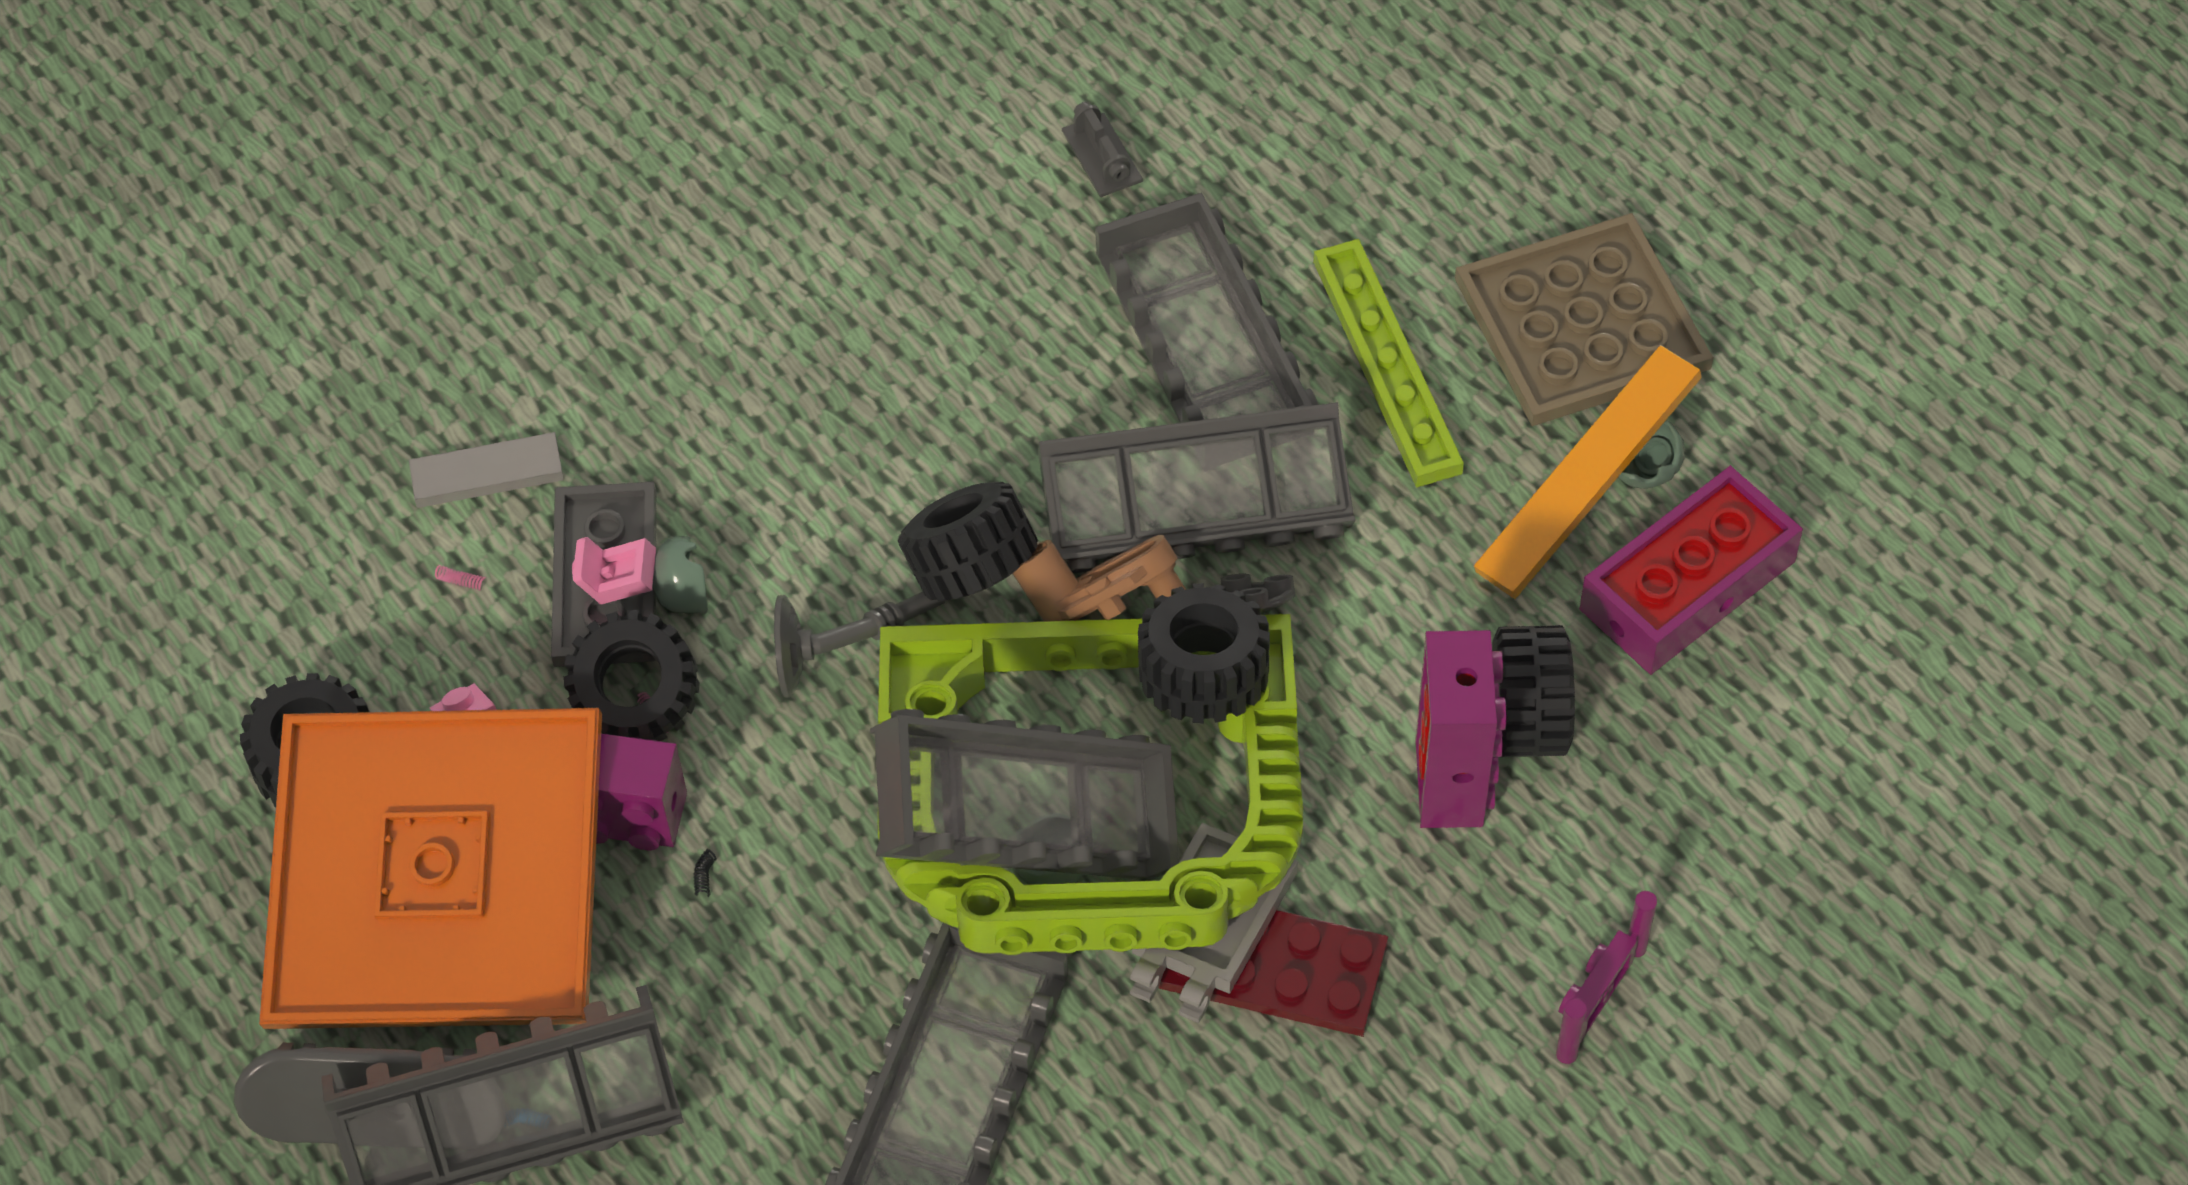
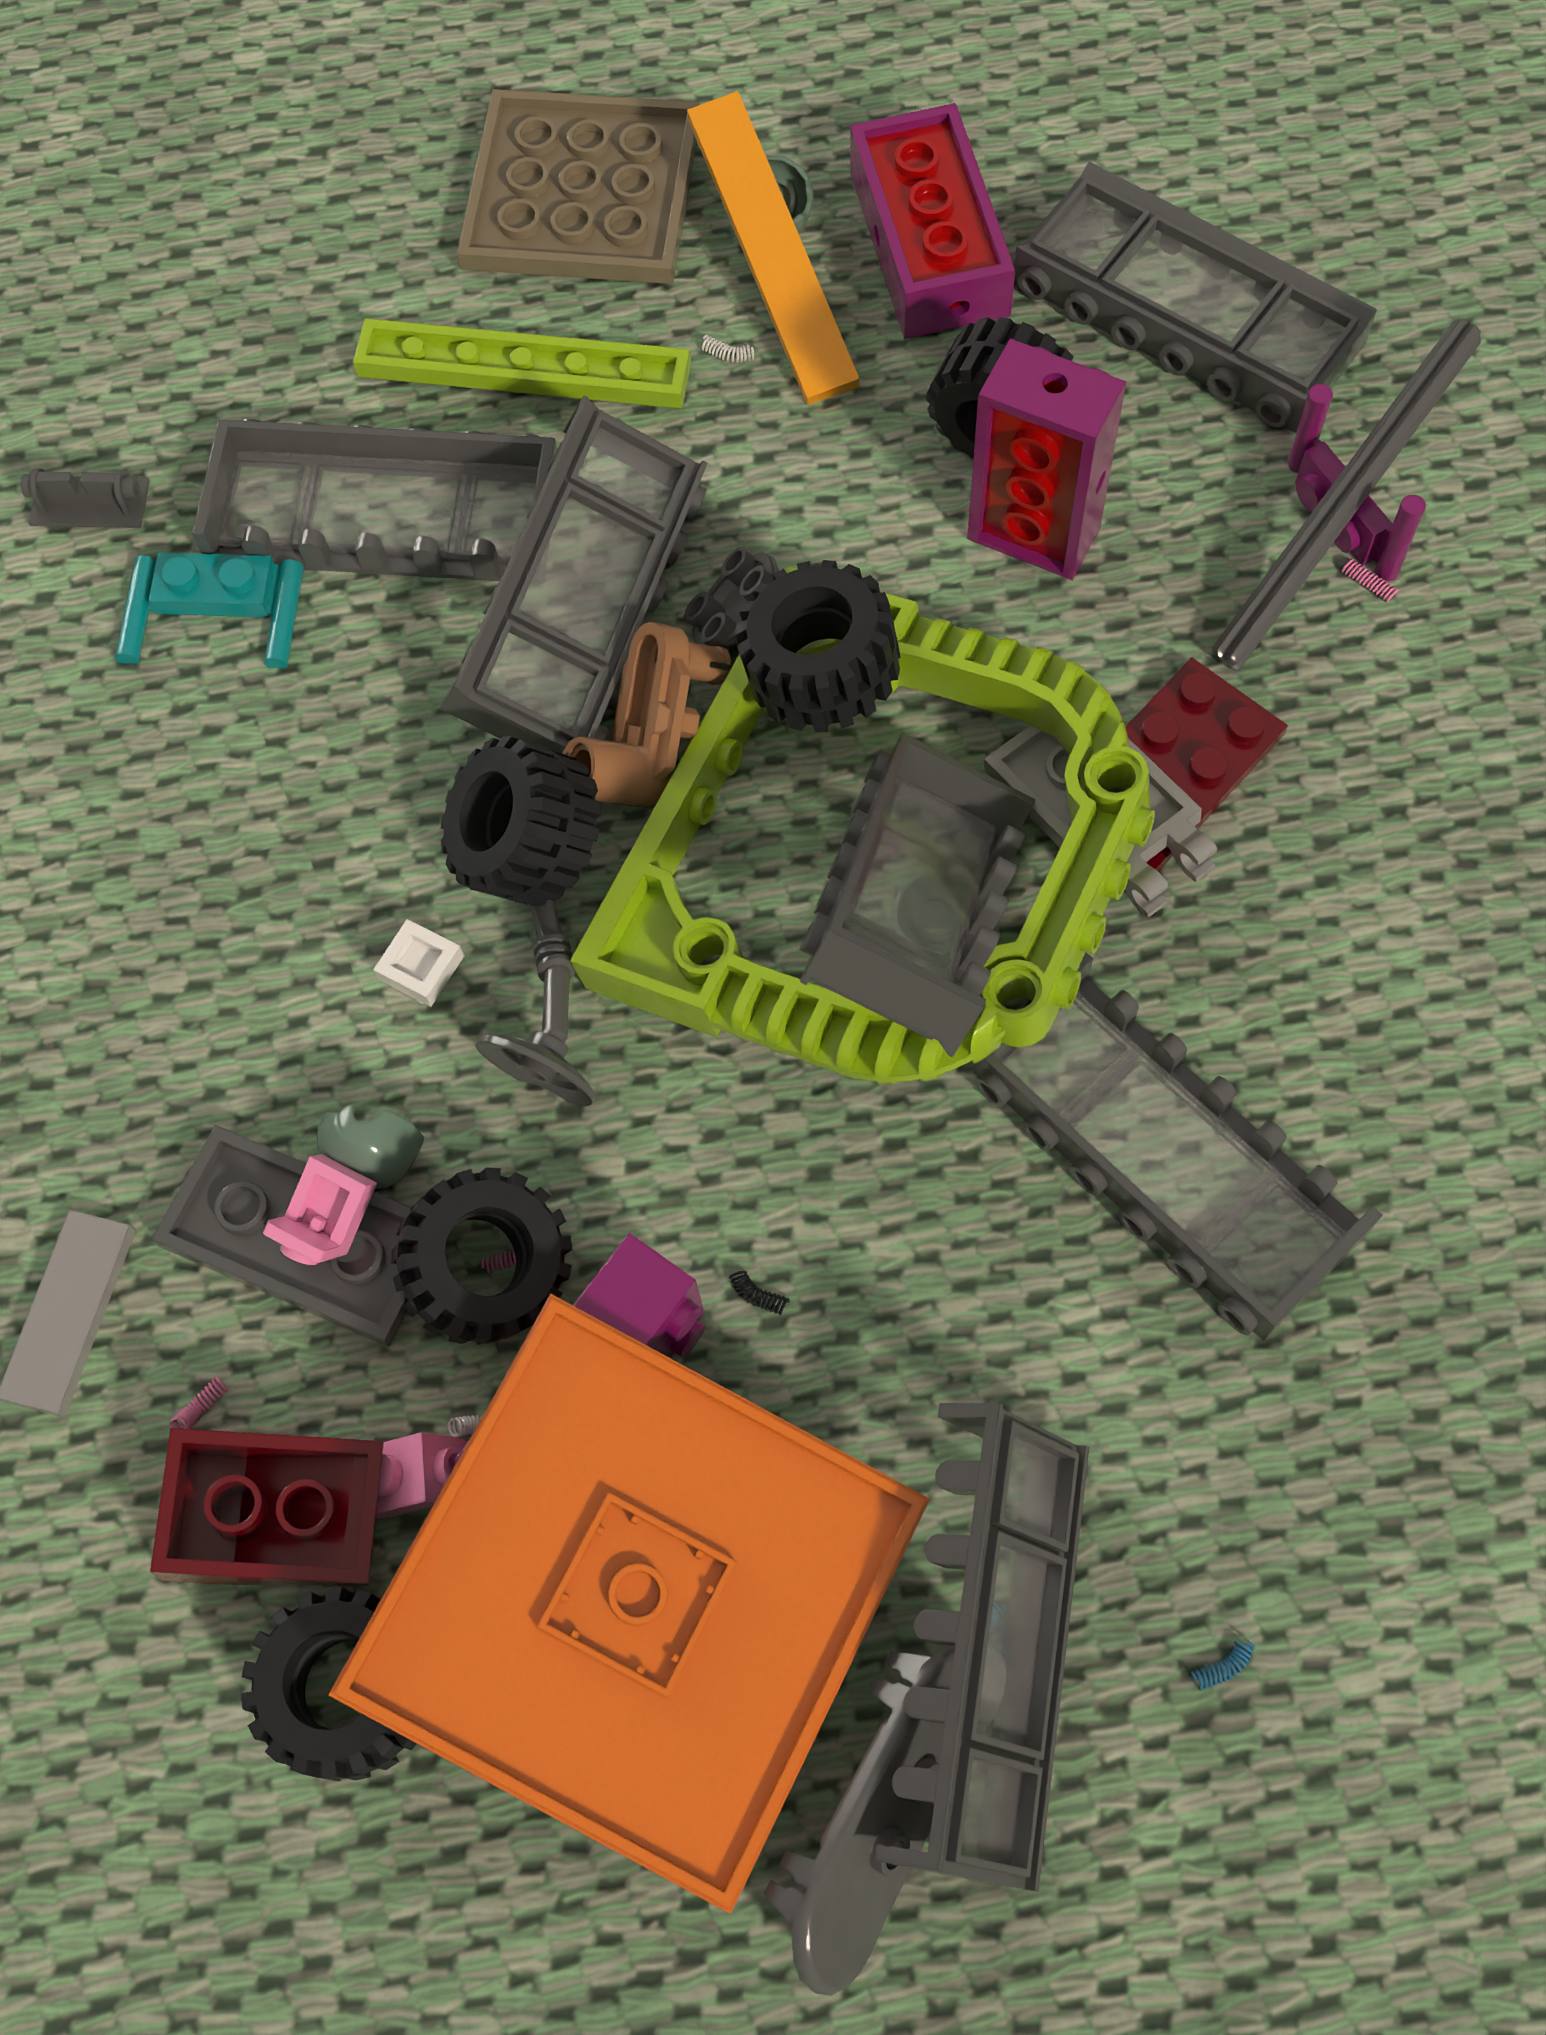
camera: 60 degrees left, 10 degrees up
(401, 639) = (267, 1509): none -> dark red slope
(835, 539) = (418, 963): none -> white tile
(1075, 268) = (212, 588): none -> teal plate
(1491, 492) = (726, 347): none -> white leg
(1545, 1042) = (1376, 578): none -> bright pink leg
(1587, 971) = (1347, 494): none -> dark grey axle
(1741, 797) = (1192, 296): none -> dark grey window

